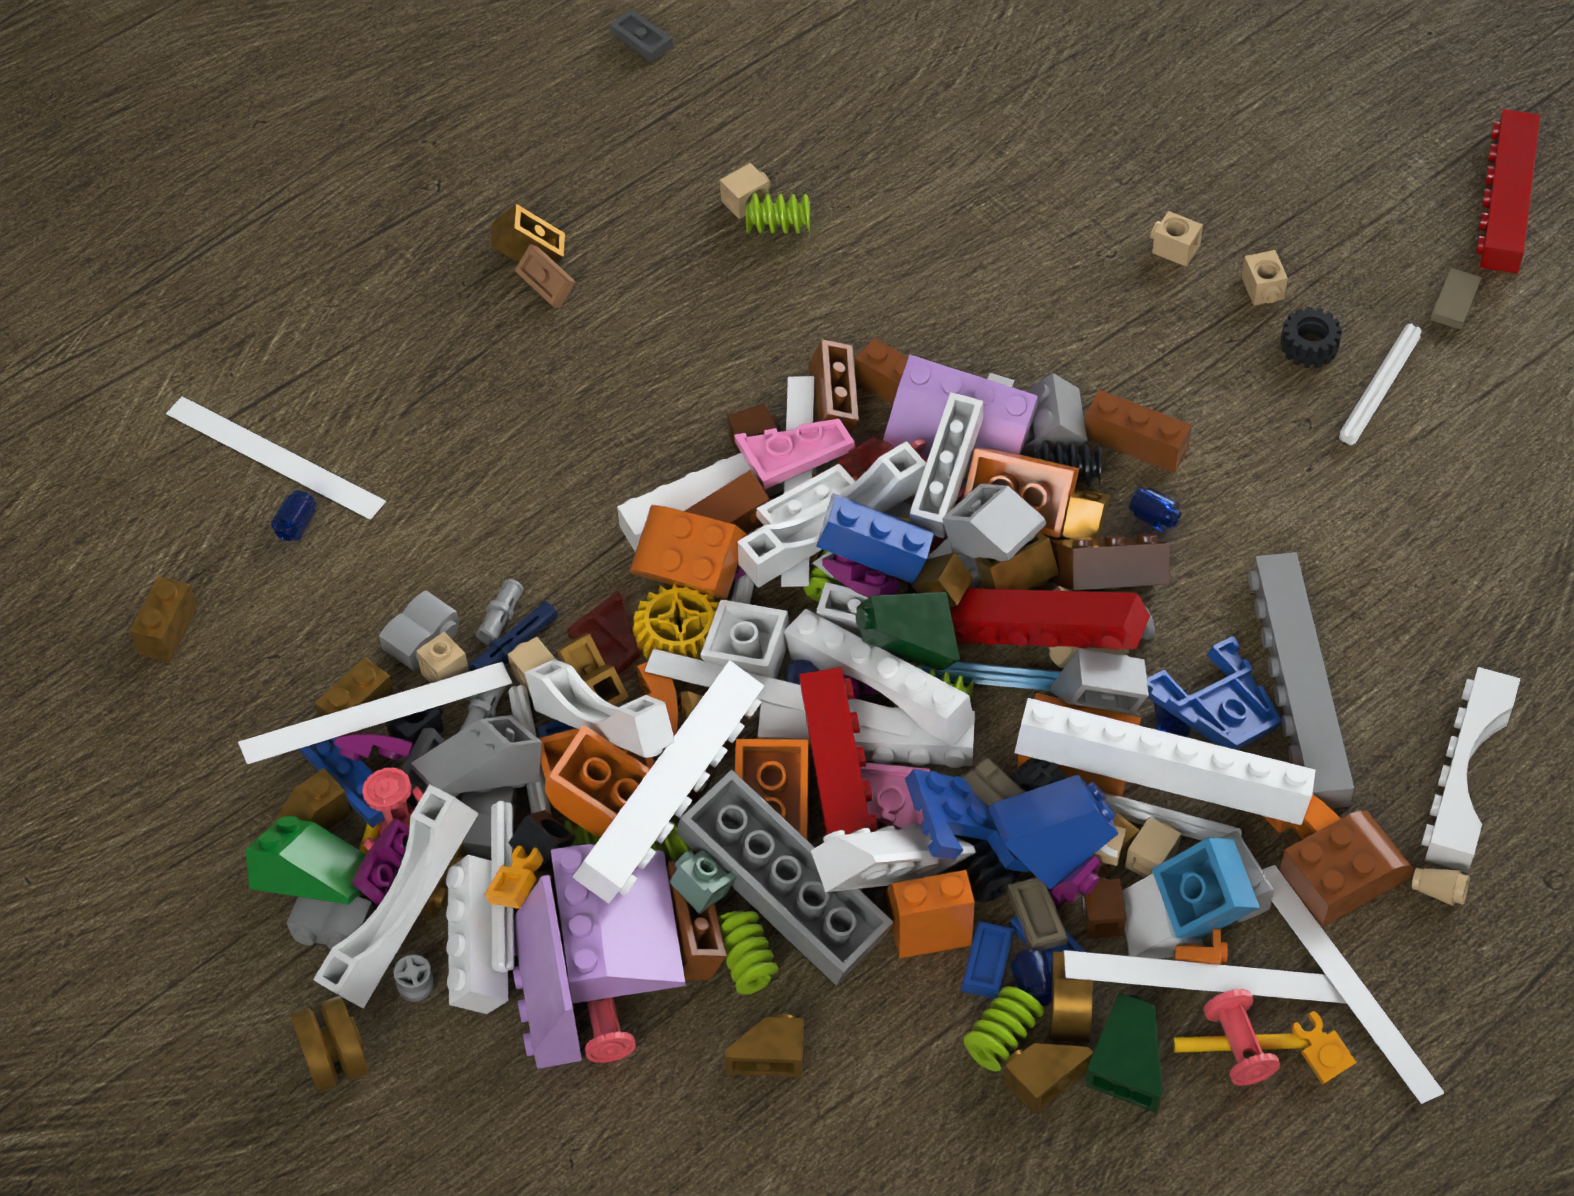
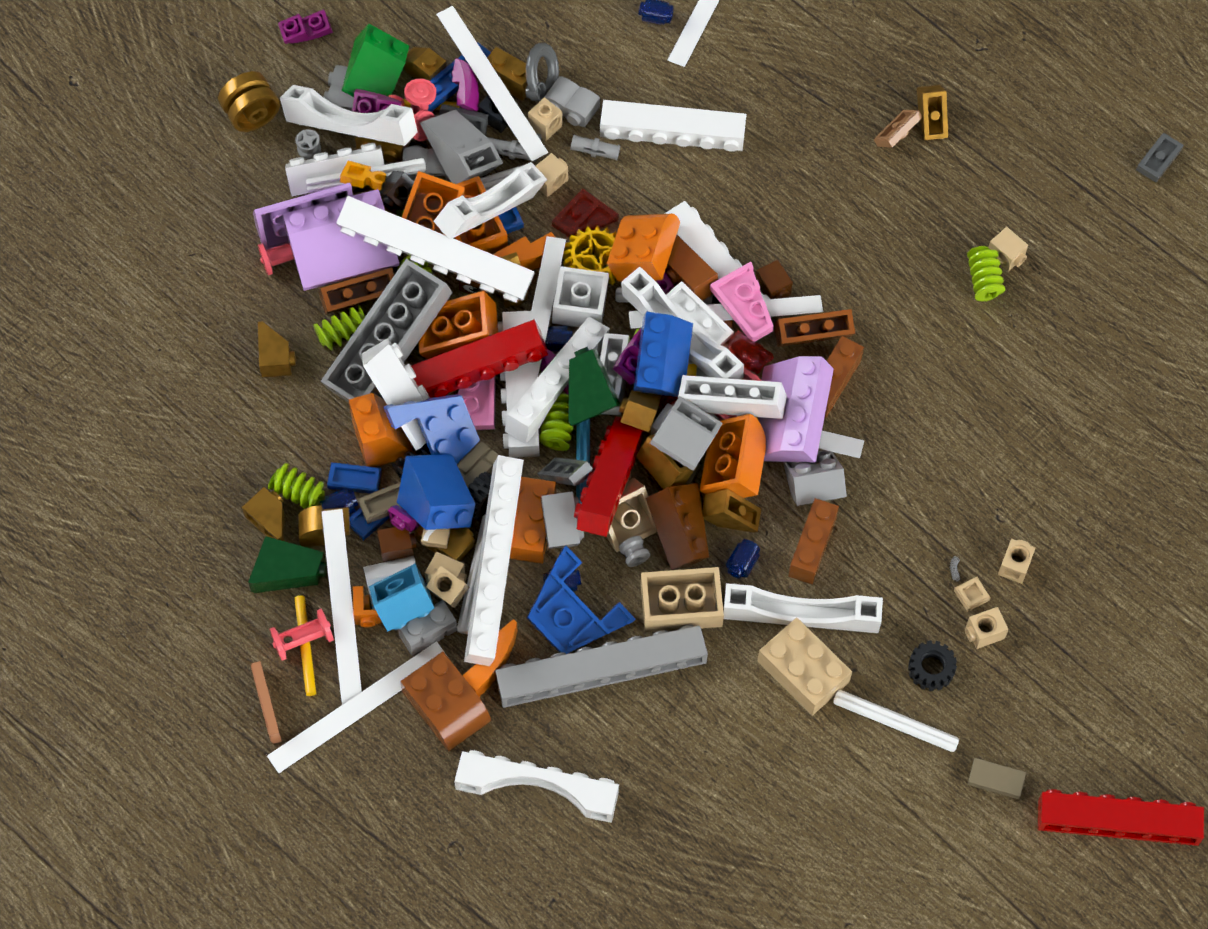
camera: 80 degrees right, 10 degrees up
(196, 970) = (304, 29): none -> magenta slope
(396, 665) = (537, 90): none -> dark grey piece
(486, 517) = (672, 125): none -> white brick
(520, 633) = (574, 160): dark blue pin -> none
(589, 665) = (538, 212): pearl gold brick -> none
(701, 880) = (368, 290): sand green brick -> none
(1023, 678) = (565, 471): none -> dark grey plate
(1088, 464) = (774, 494): black piece -> none
(1168, 302) = (955, 562): none -> light grey leg
(1197, 819) = (456, 591): none -> tan brick
(1213, 291) = (972, 594): none -> tan tile
(1214, 575) = (681, 599): none -> tan brick
(1233, 451) = (846, 613): none -> white arch
(1310, 460) = (804, 666): none -> tan brick
(1326, 1053) = (297, 690): light orange plate -> none
(1343, 1093) = (265, 702): none -> nougat tile
(1442, 884) = (437, 767): tan cone -> none

